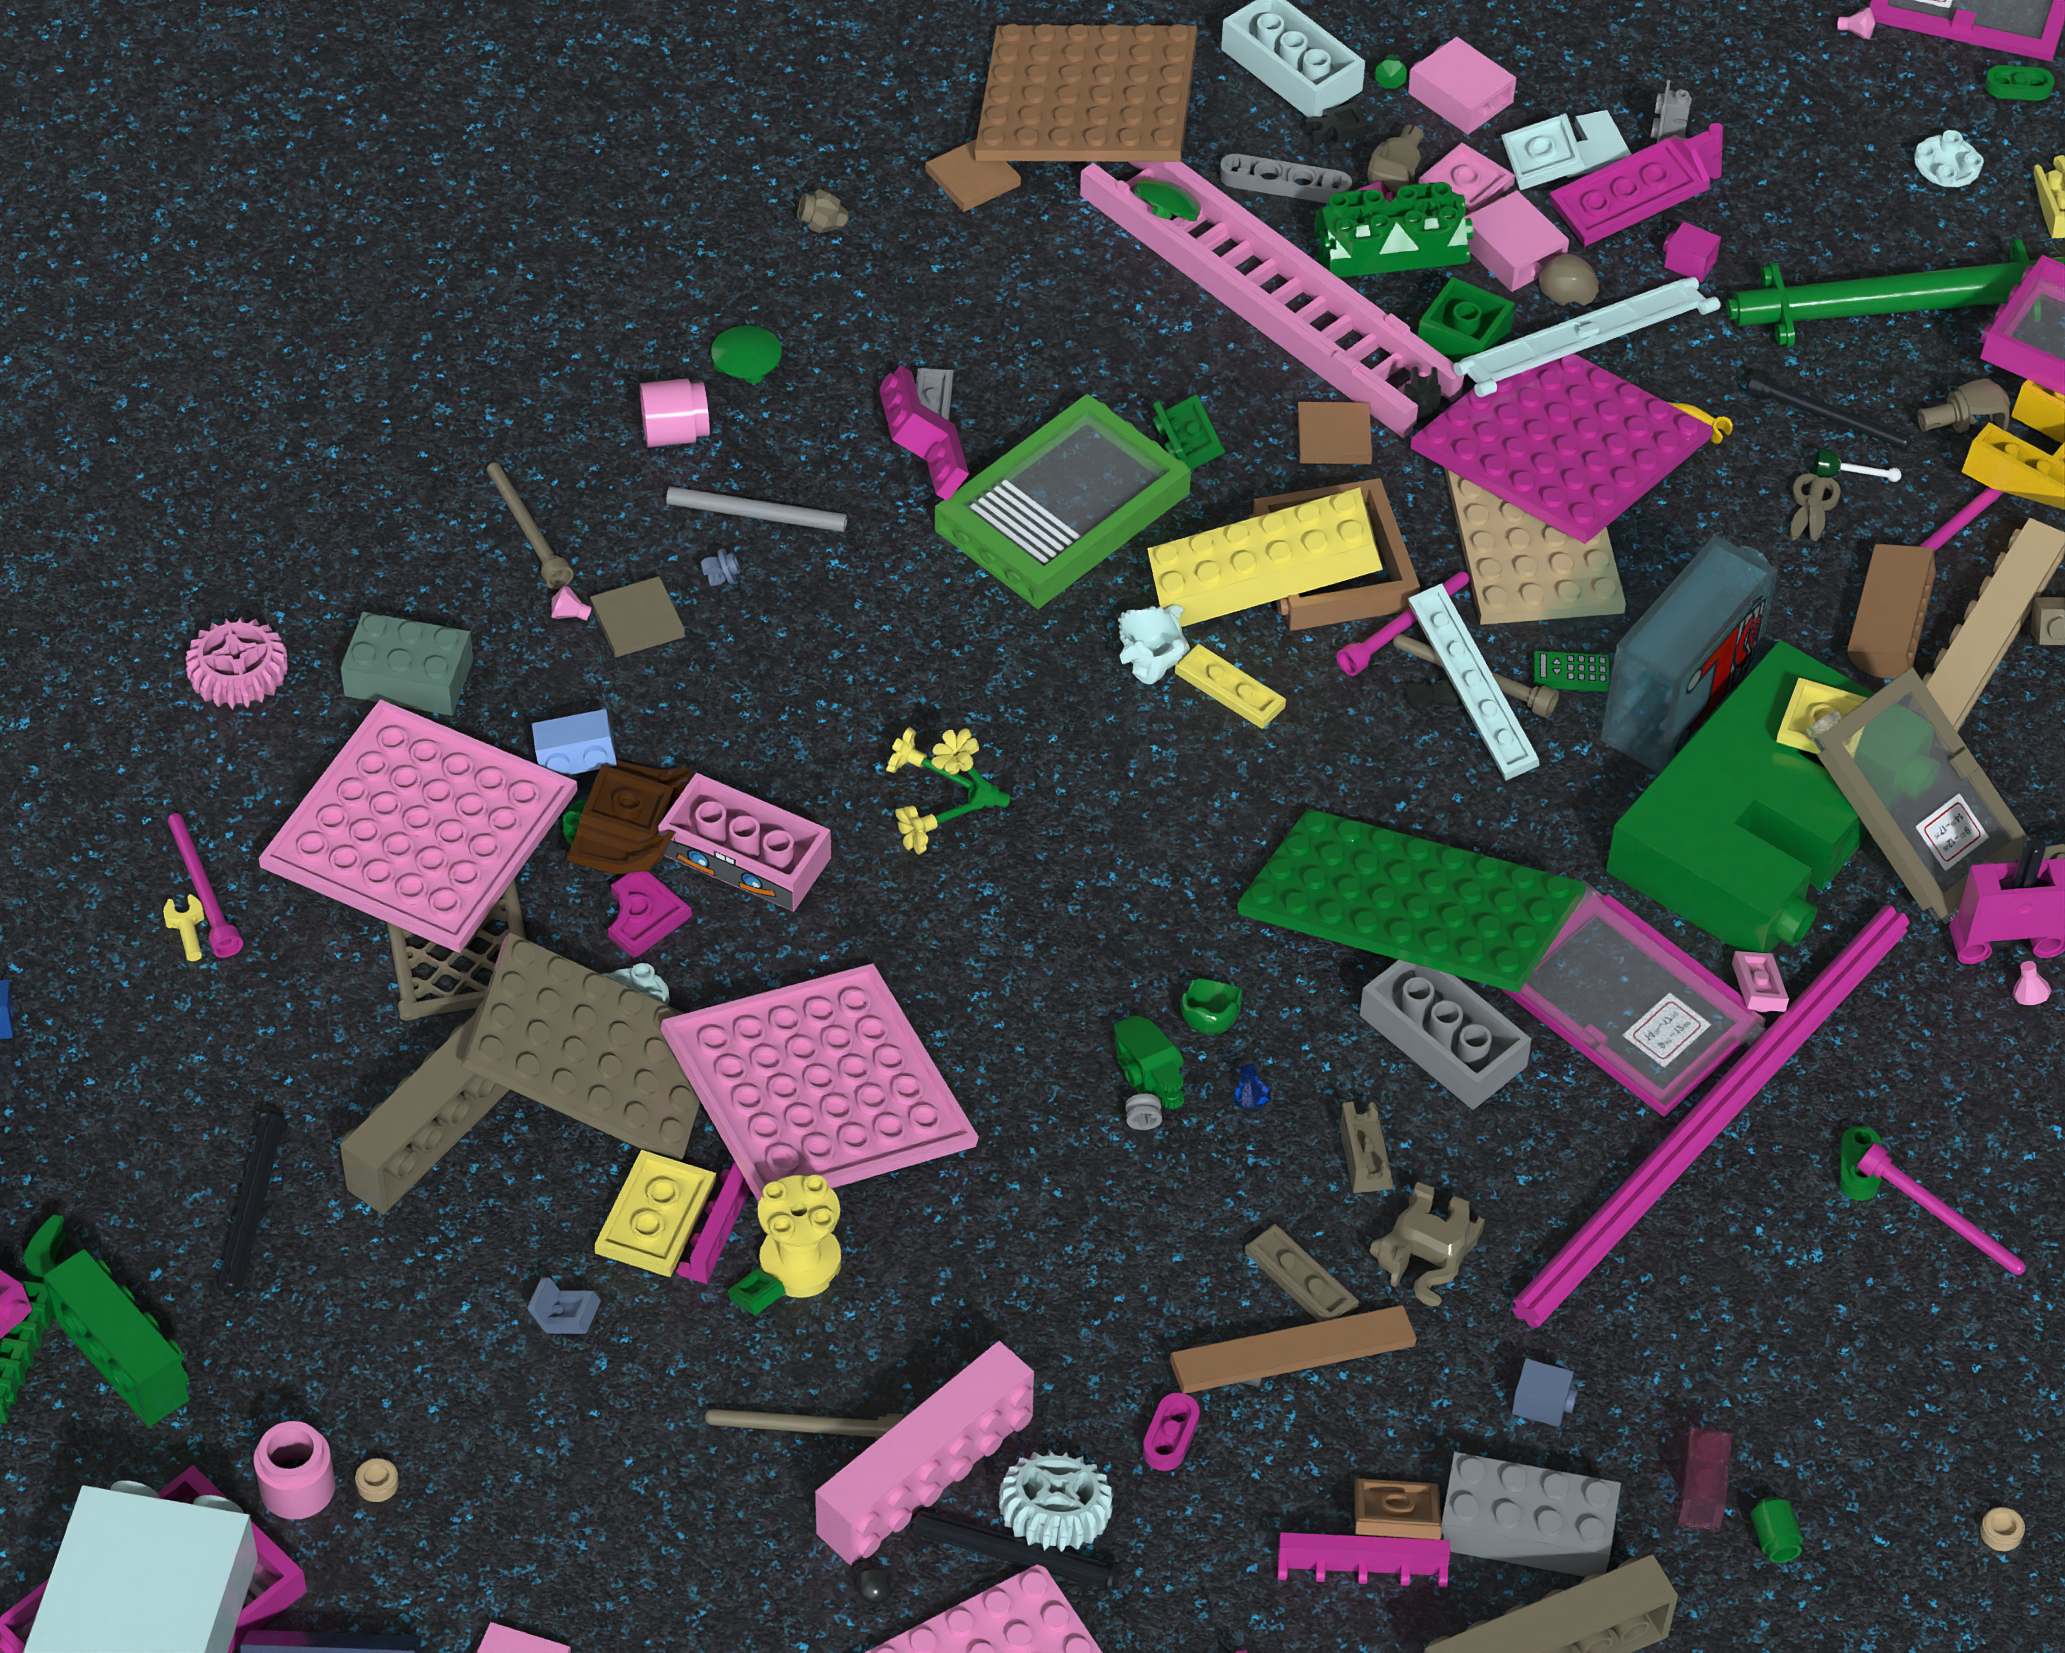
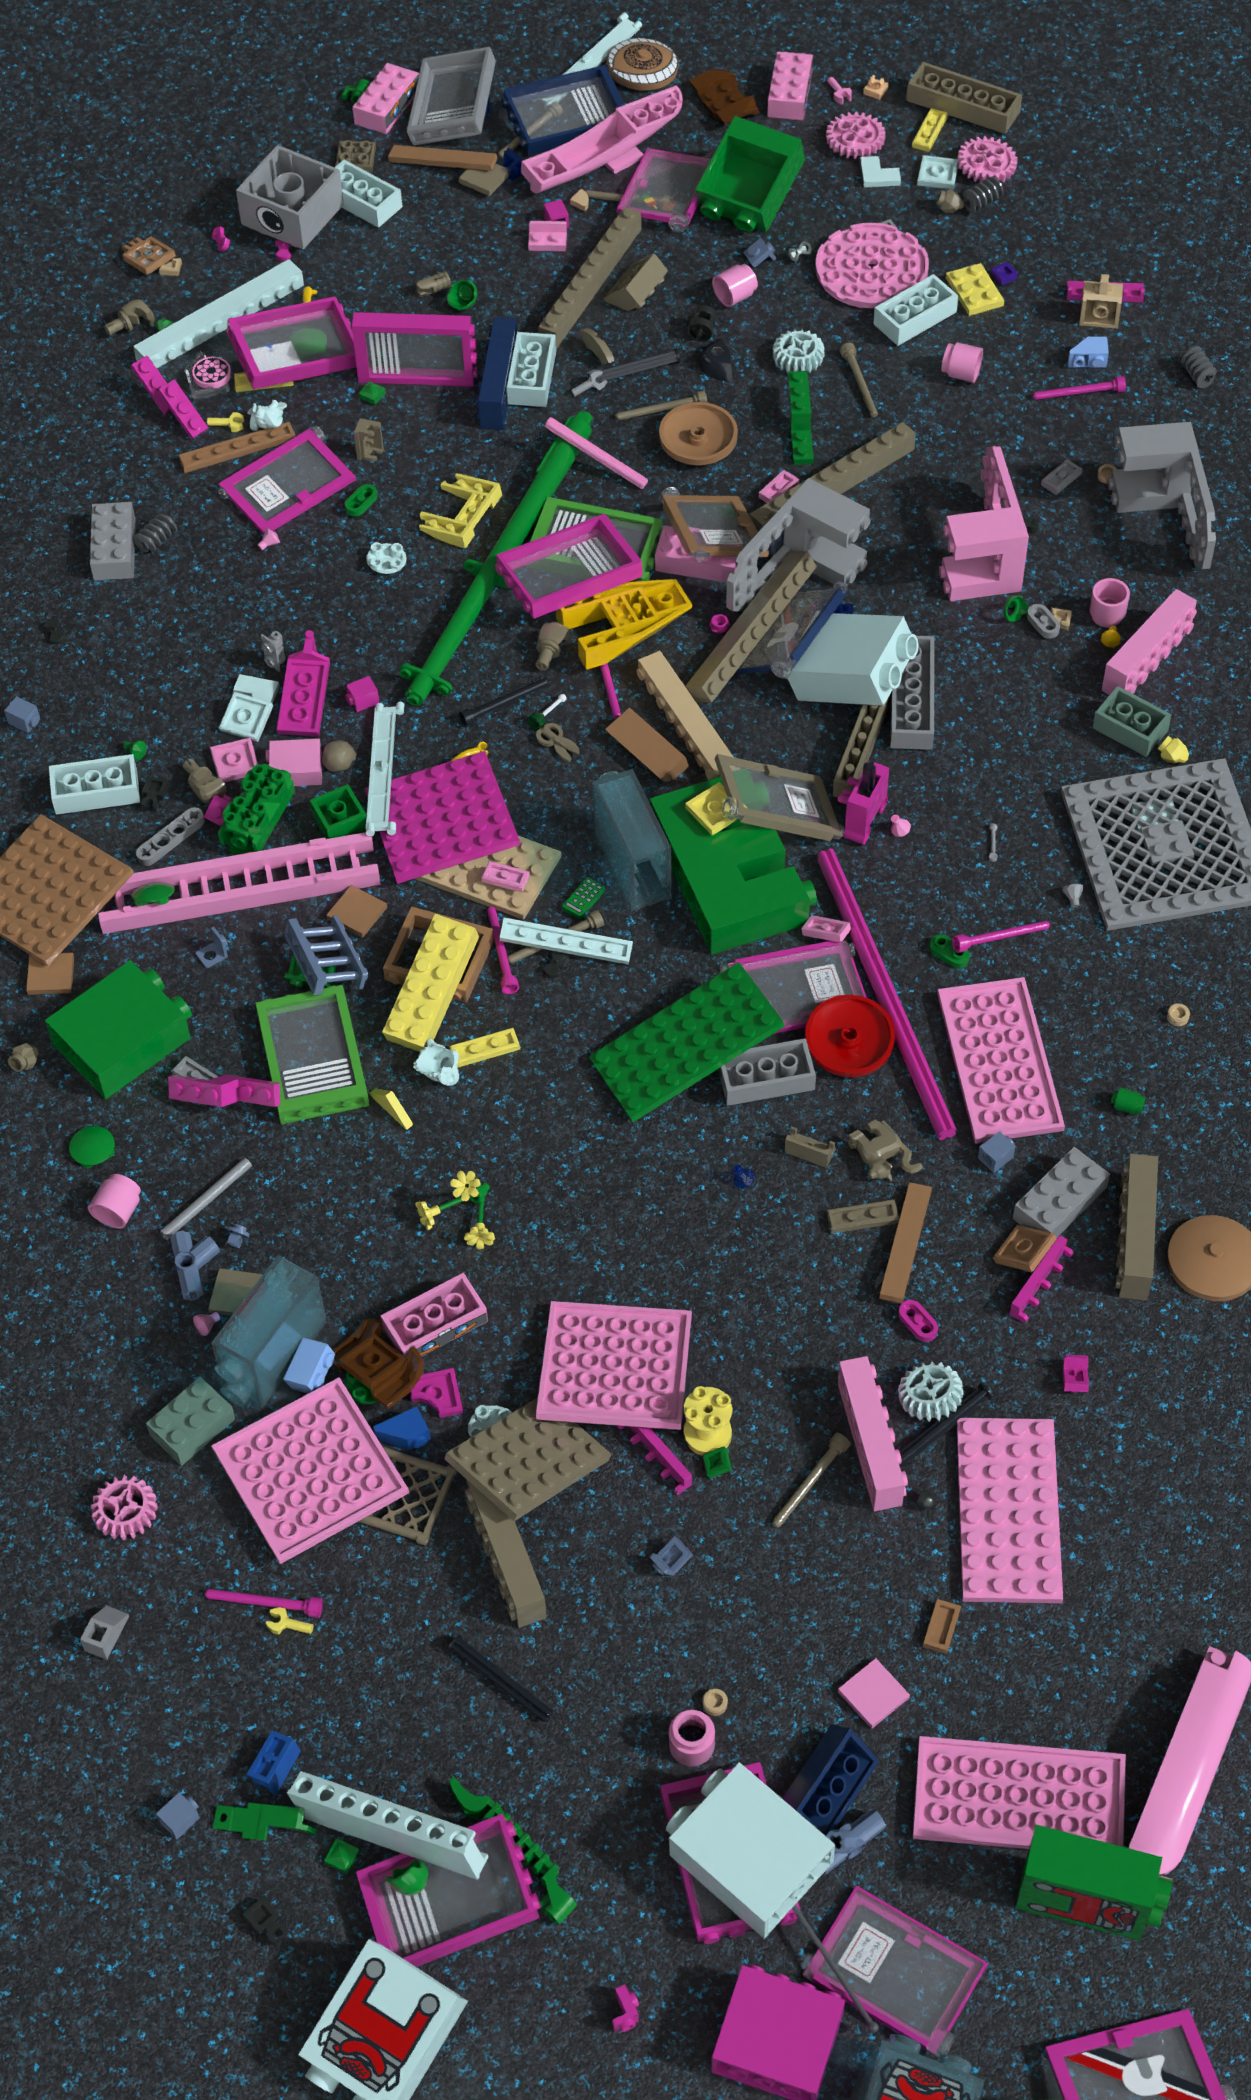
camera: 55 degrees left, 5 degrees up
(45, 732) = (103, 1631): none -> light grey slope
(117, 1337) = (554, 1785): green brick -> none
(554, 569) = (176, 1316): dark tan piece -> none
(556, 901) = (404, 1430): none -> blue slope
(569, 653) = (266, 1332): none -> clear light blue brick
(644, 538) = (195, 1255): none -> sand blue piece
(655, 1213) = (638, 1484): light yellow plate -> none
(935, 277) = (119, 1028): none -> green brick
(1048, 632) = (391, 1104): none -> light yellow tile
(1143, 1111) = (724, 1229): light grey bush -> none
(1149, 1060) = (697, 1209): green hinge -> none
(1154, 313) = (218, 946): none -> sand blue bracket
(1209, 395) = (312, 965): none -> sand blue fence
(1211, 1006) = (682, 1164): green hair -> none
(1425, 393) = (369, 855): pearl dark grey plate -> none
(1462, 85) = (172, 724): bright pink brick -> none
(1518, 556) = (505, 876): none -> bright pink plate
(1592, 1100) = (850, 1035): none -> red dish
(1704, 1479) = (1085, 1113): clear pink brick -> none
(1715, 1320) = (1000, 1060): none -> bright pink plate

